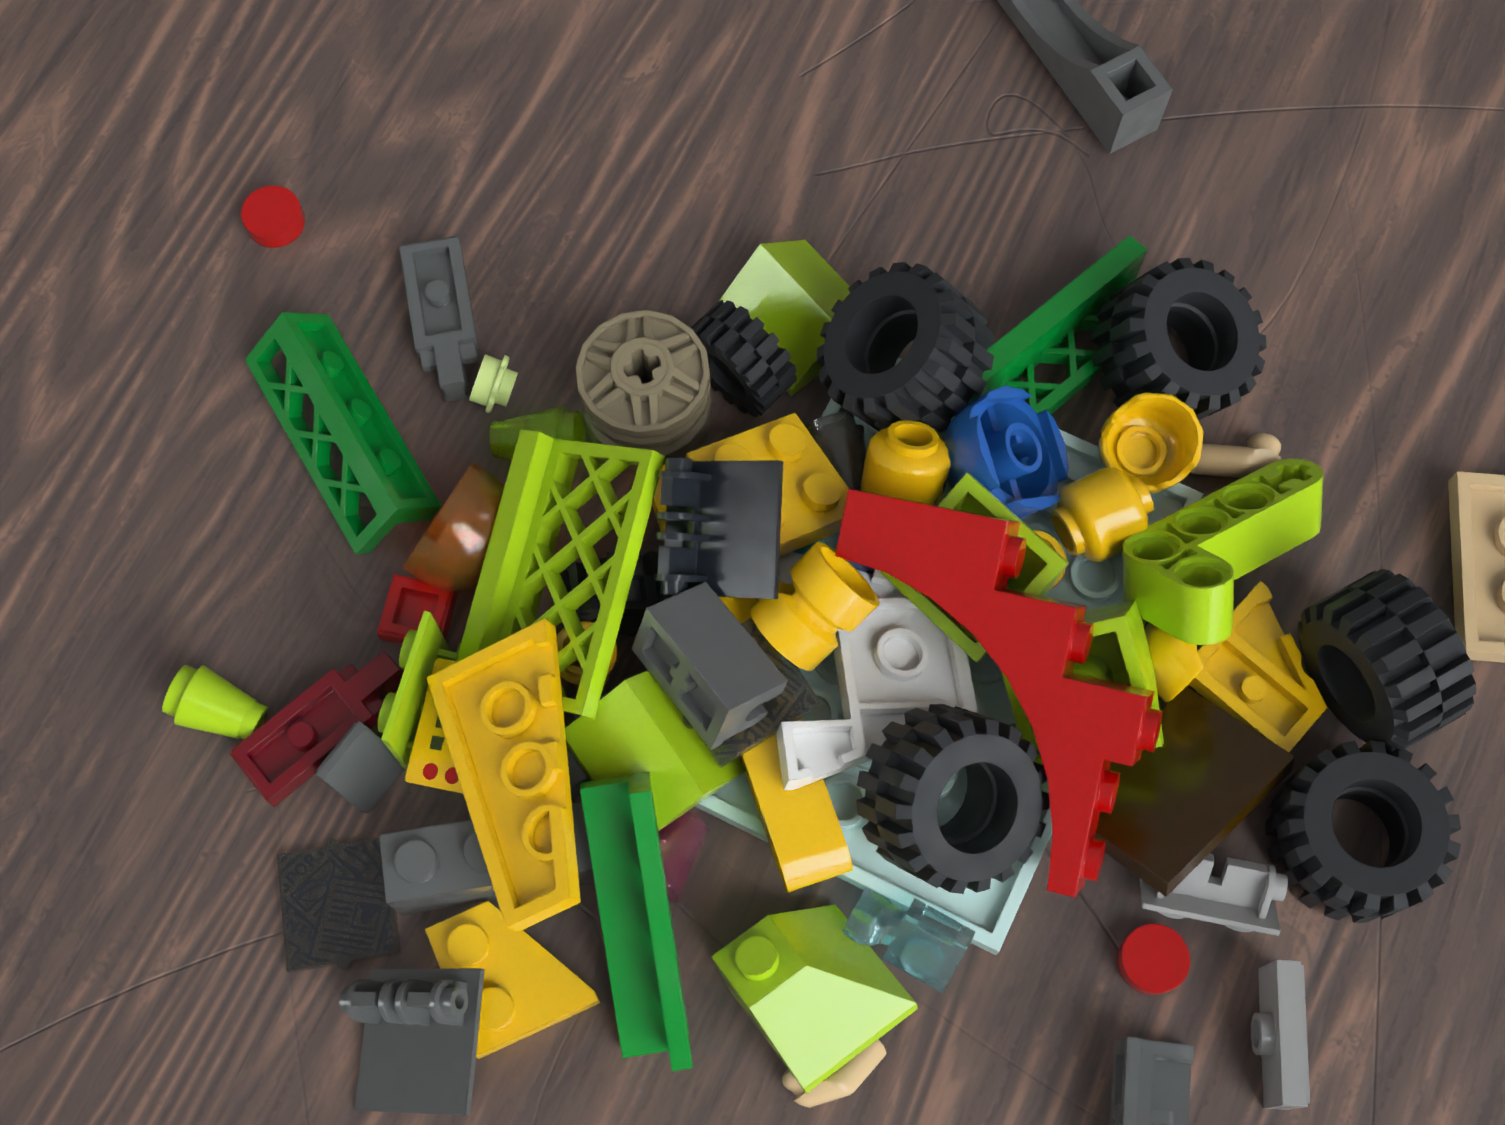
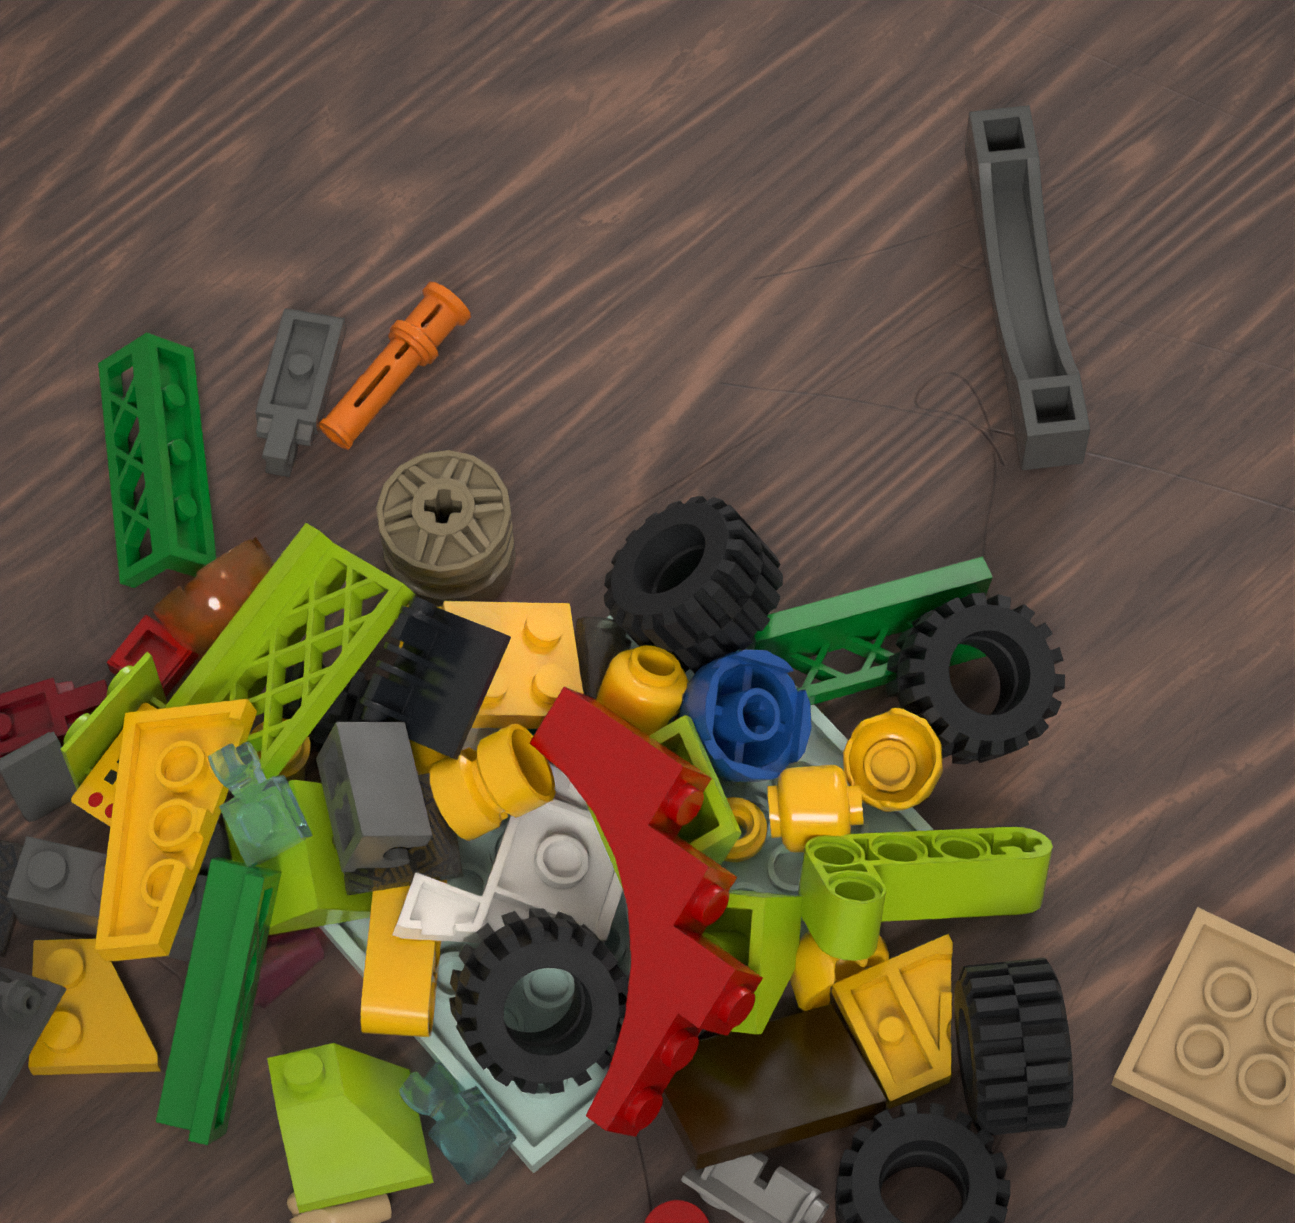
camera: 25 degrees right, 5 degrees down
(273, 216) = (183, 235): red tile -> none
(493, 383) = (315, 471): yellowish green plate -> none
(534, 237) = (410, 345): none -> orange pin
(553, 422) = (348, 531): clear neon green cone -> none
(611, 726) = (264, 811): none -> clear light blue plate
(744, 358) = (550, 535): black tyre -> none
(793, 296) = (617, 490): lime slope -> none
(1238, 460) = (984, 812): tan arm -> none

